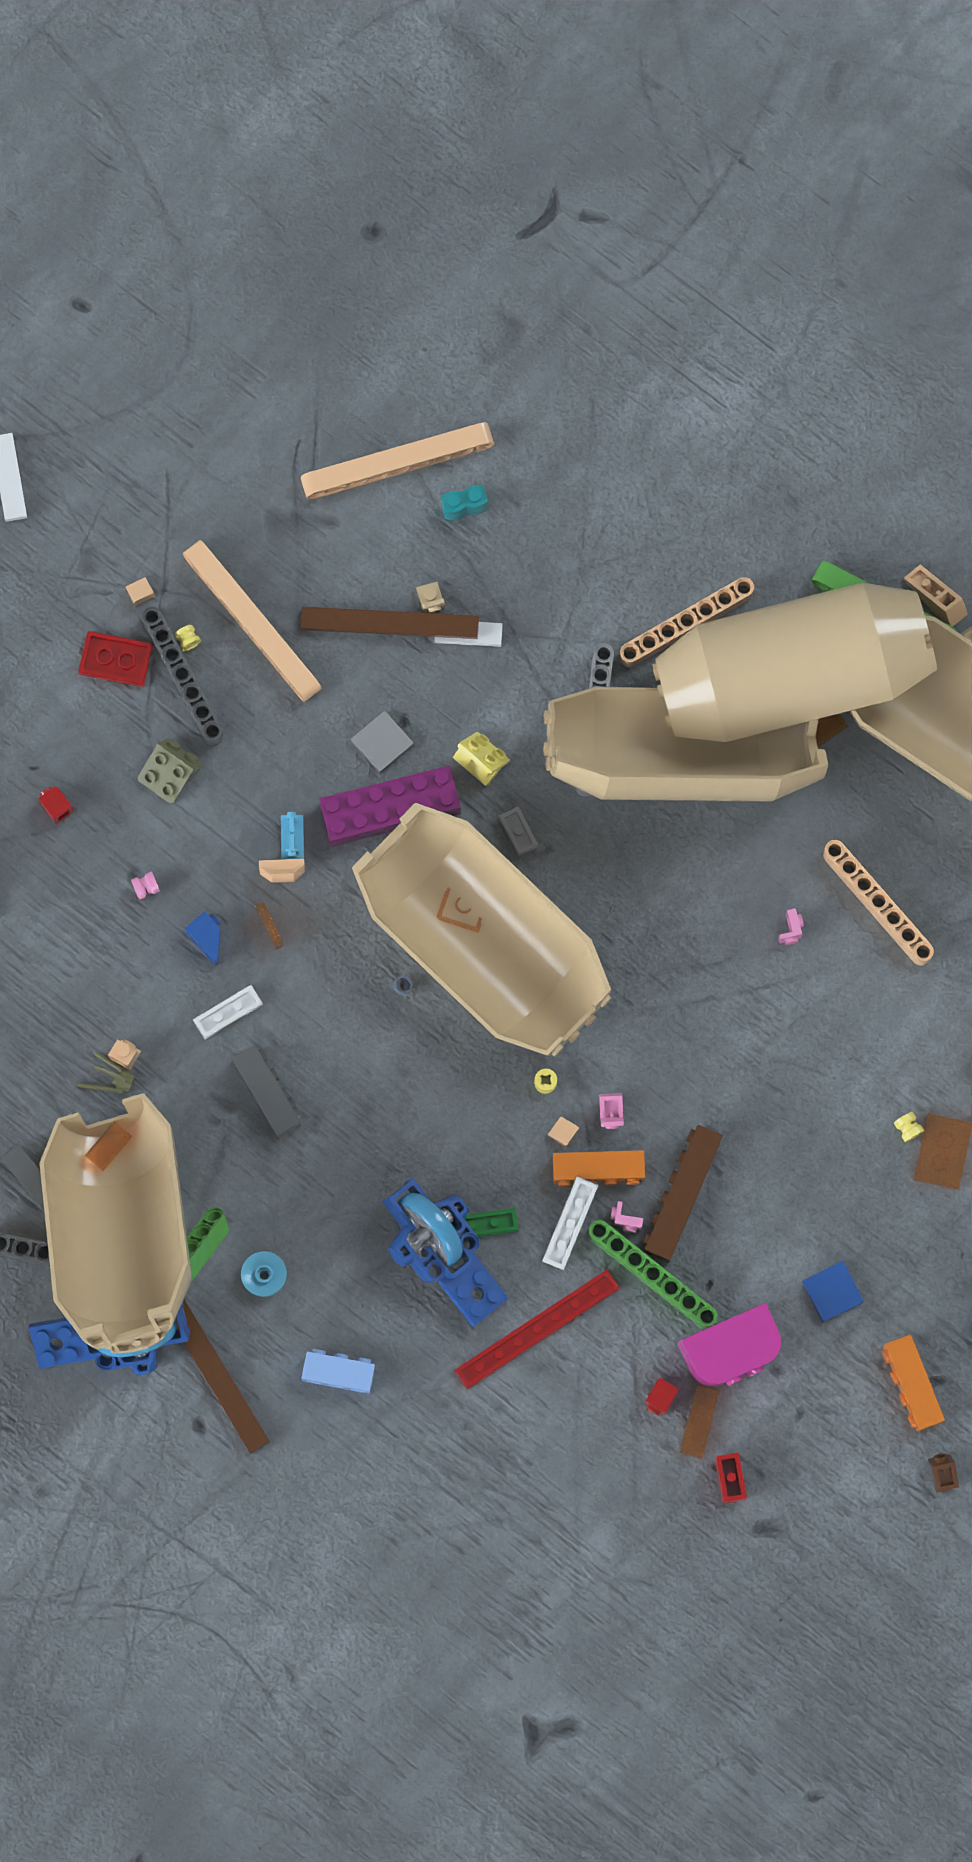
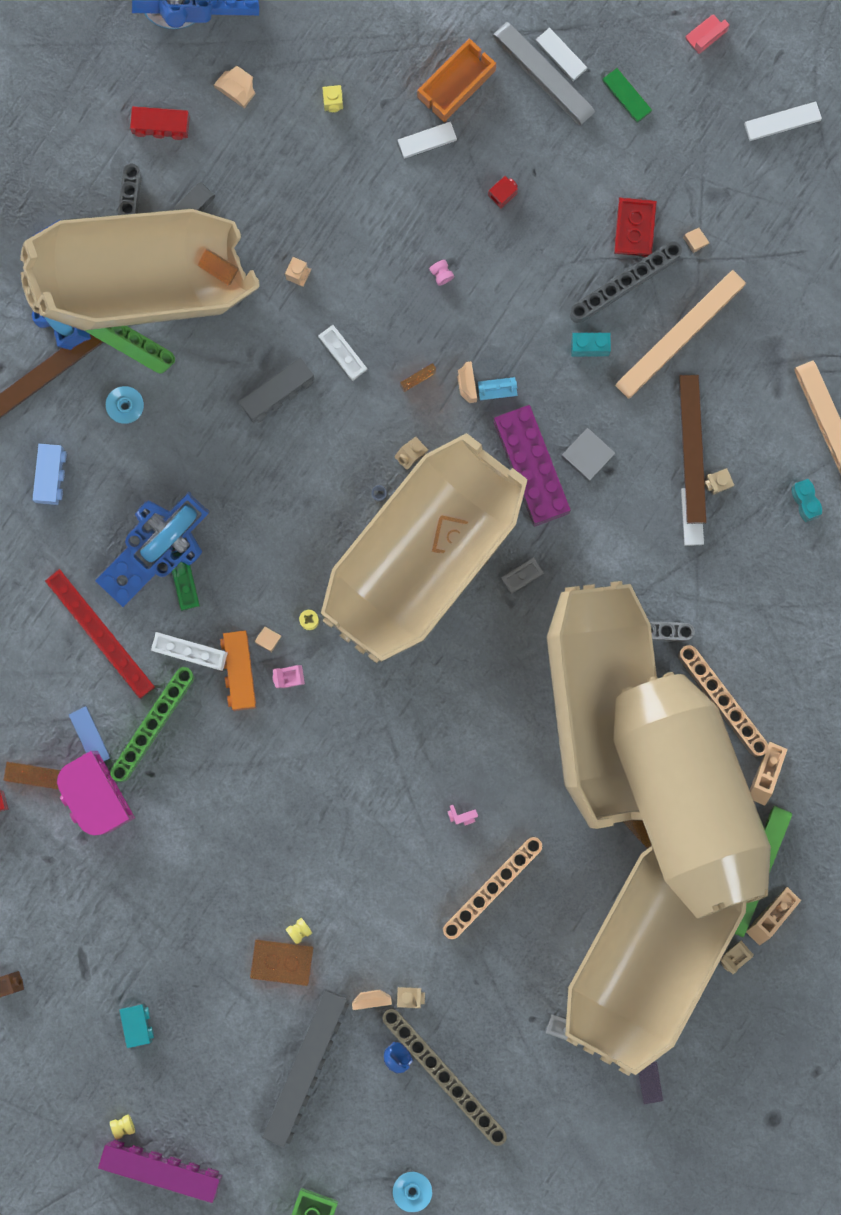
camera: 85 degrees right, 5 degrees up
(122, 1079) = (275, 273): olive plant -> none
(169, 769) = (544, 281): olive bracket -> none
(187, 638) = (659, 282): light yellow wheel -> none
(206, 935) = (403, 327): blue slope -> none
(253, 723) = (590, 344): none -> teal brick
(359, 943) = (411, 453): none -> tan bracket
(480, 757) = (583, 537): light yellow bracket -> none
(628, 1223) = (193, 701): bright pink bracket -> none
(654, 1352) = (88, 732): none -> medium blue tile
(661, 1397) = (50, 741): red brick -> none
(683, 1193) = (222, 743): reddish brown brick -> none
(774, 582) = (767, 773): none -> light nougat slope
(832, 1291) = (152, 878): blue tile -> none
(913, 1383) = (79, 953): orange brick -> none

